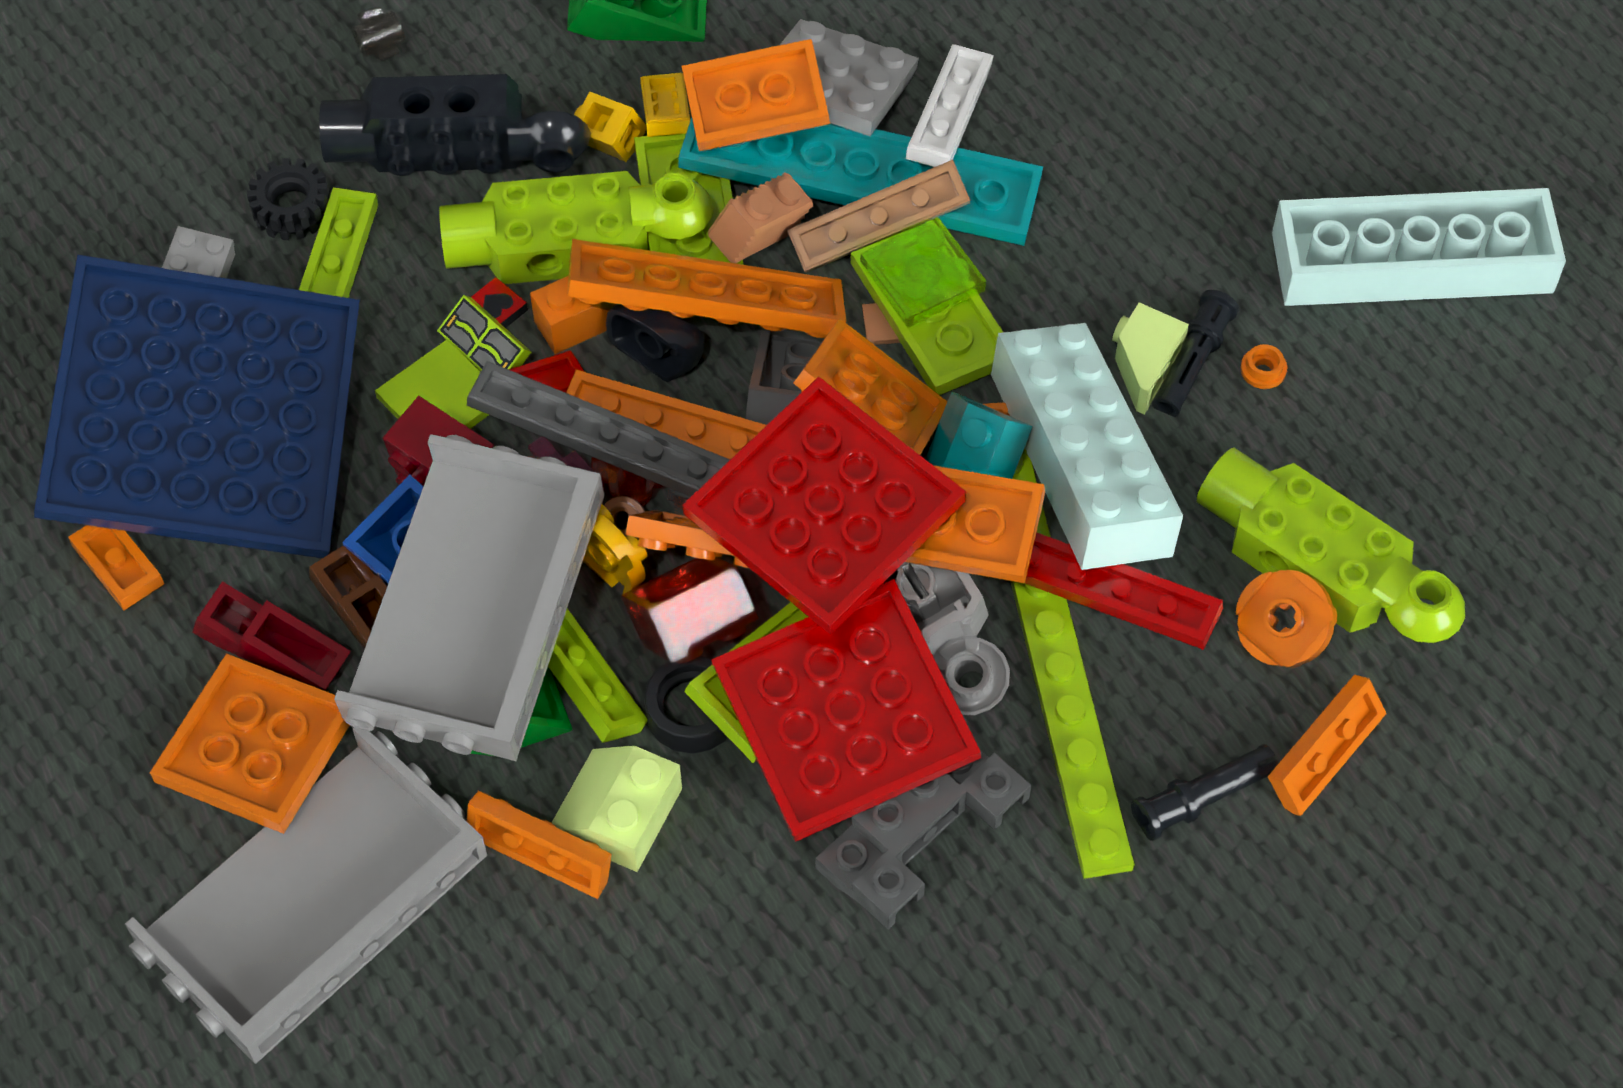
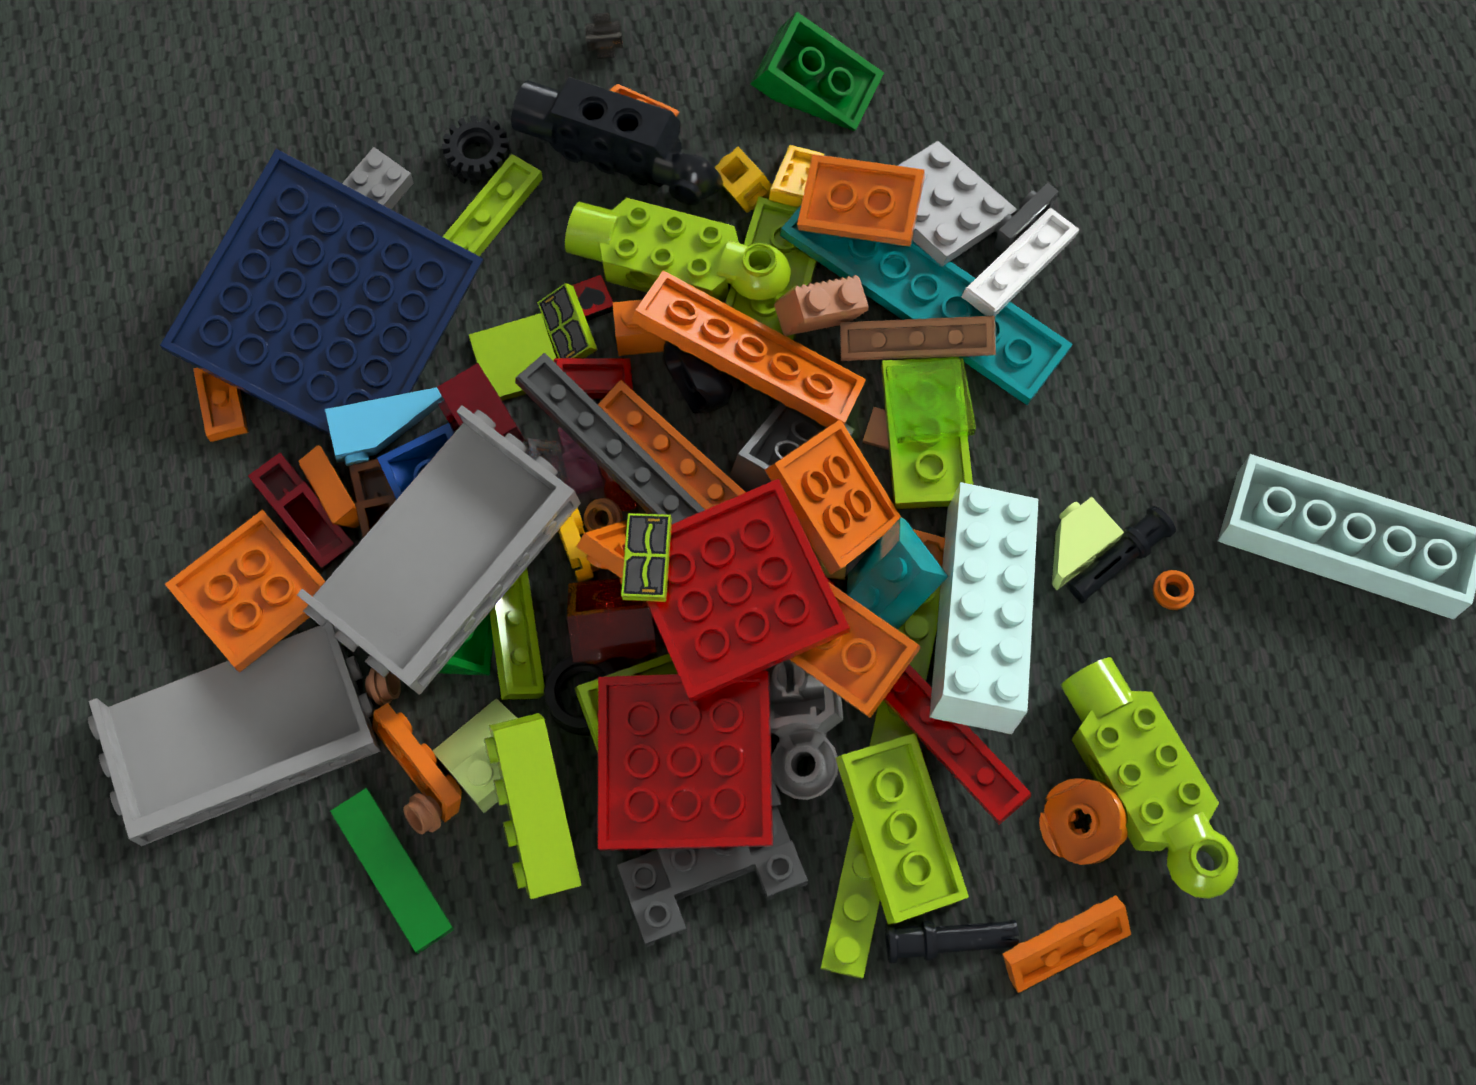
camera: 25 degrees right, 10 degrees up
(298, 597) = (329, 488): none -> orange slope
(311, 518) = (372, 425): none -> medium azure slope
(458, 780) = (382, 688): none -> nougat plate
(563, 969) = (392, 870): none -> green tile
(571, 894) = (423, 813): none -> nougat plate
(700, 823) = (534, 806): none -> lime brick
(717, 503) = (646, 557): none -> tile
(934, 53) = (1031, 209): none -> dark grey plate
(1102, 696) = (901, 828): none -> lime plate

